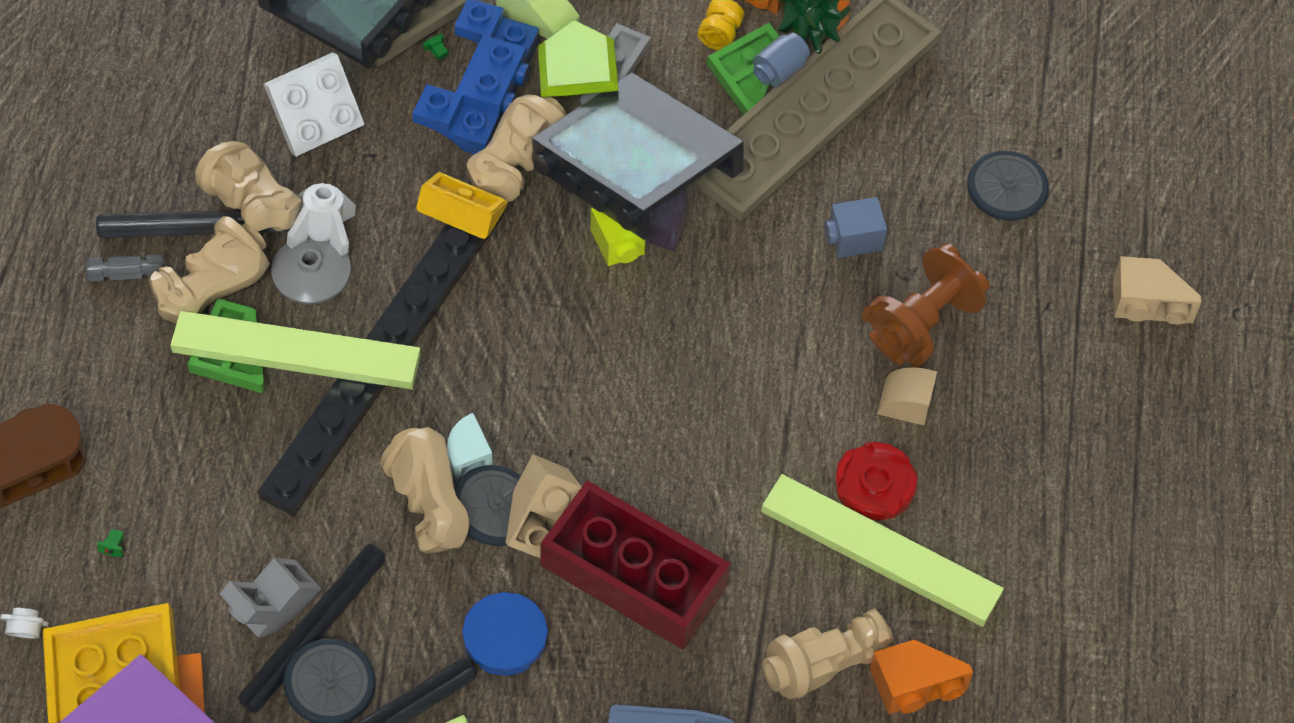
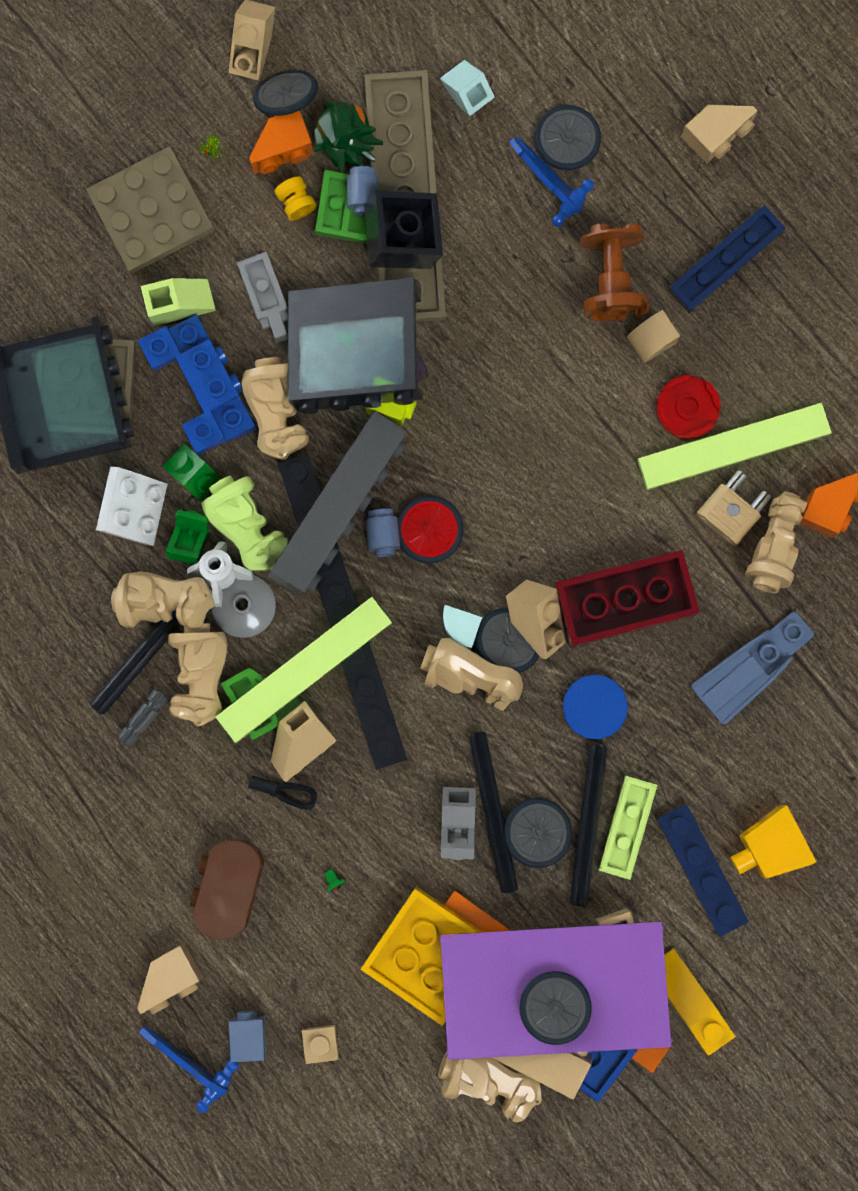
camera: 40 degrees left, 25 degrees up
(24, 623) = (345, 976): white plate -> none
(159, 422) = (274, 788): none -> black piece
(227, 400) = (299, 741): none -> tan slope
(337, 170) = (188, 537): none -> green bracket
(386, 194) = (237, 518): none -> yellowish green animal
(393, 134) = (191, 472): none -> green bracket
(436, 46) = (147, 387): green piece -> none
(460, 204) = (288, 480): yellow slope -> none
(478, 255) = (337, 504): none -> dark grey brick
(491, 319) = (382, 532): none -> sand blue brick
(533, 357) = (430, 529): none -> red wheel
(577, 62) = (249, 316): lime tile -> none
(777, 105) = (403, 230): none -> black brick
(814, 597) = (730, 513): none -> tan piece
(856, 227) = (516, 257): sand blue brick -> none
(955, 224) = (571, 199): none -> blue piece
(962, 76) = (467, 87): none -> light aqua brick
(1045, 397) = (726, 259): none -> dark blue plate

